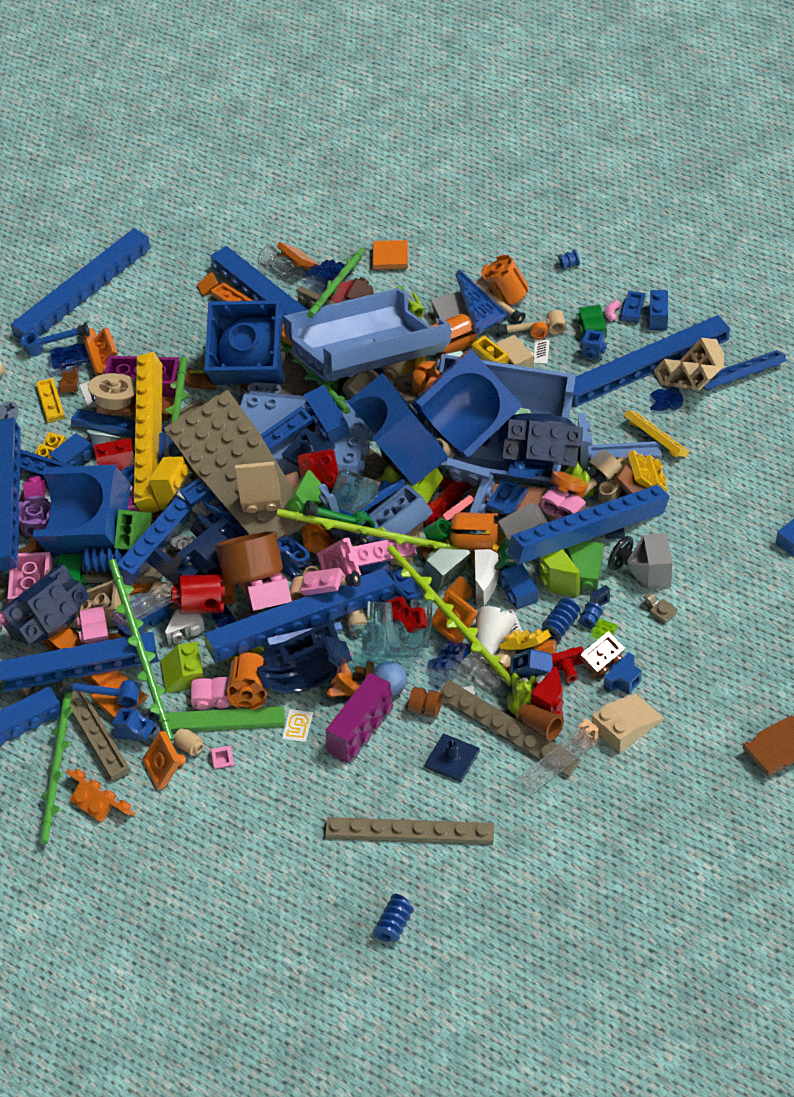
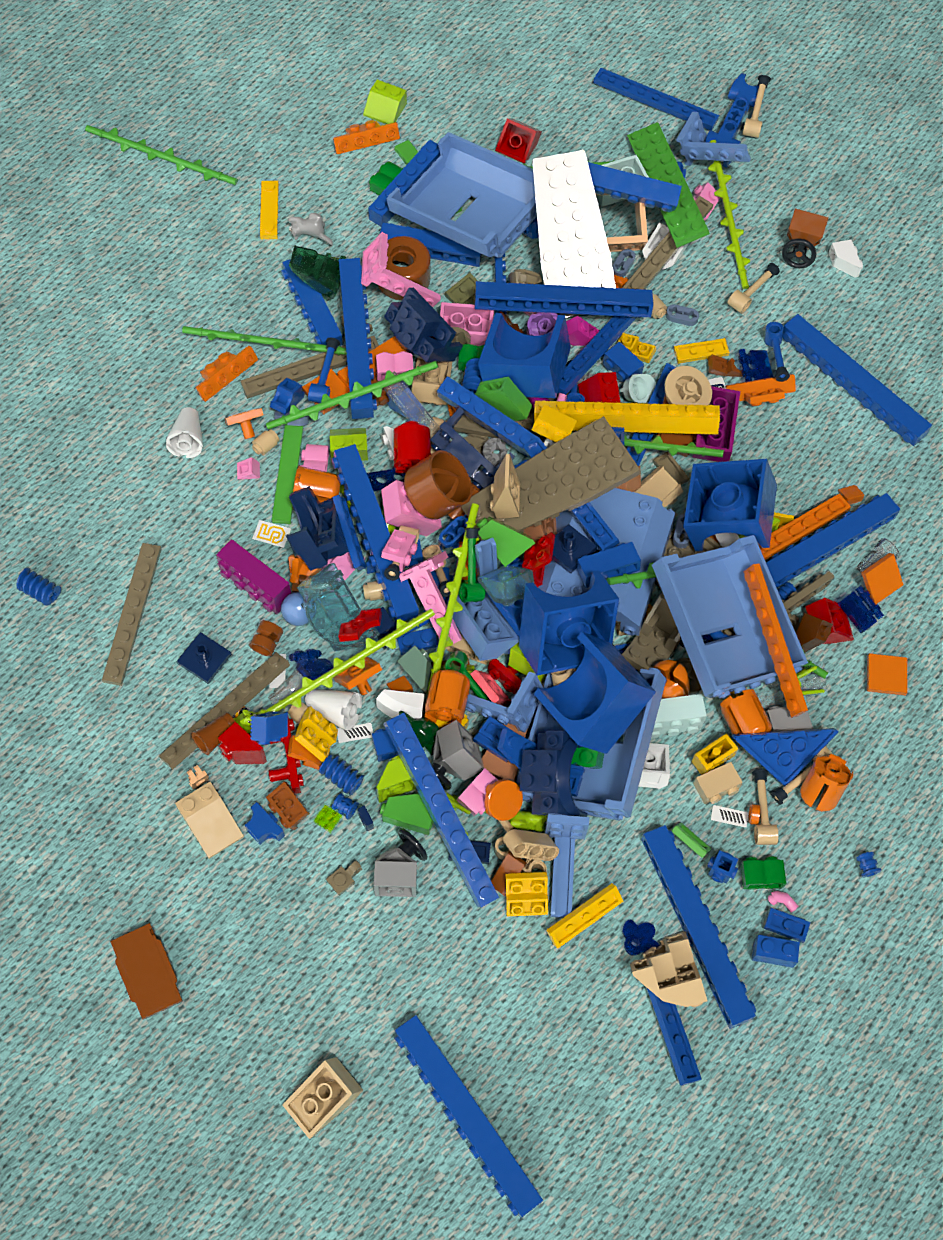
camera: 90 degrees right, 15 degrees up
(183, 812) = (186, 434): none -> white cone
(332, 287) = (814, 598): bright green plant -> none
(381, 307) = (775, 641): none -> orange plate
(556, 761) = (168, 744): clear plate -> none
(575, 364) = (691, 840): none -> bright green tile

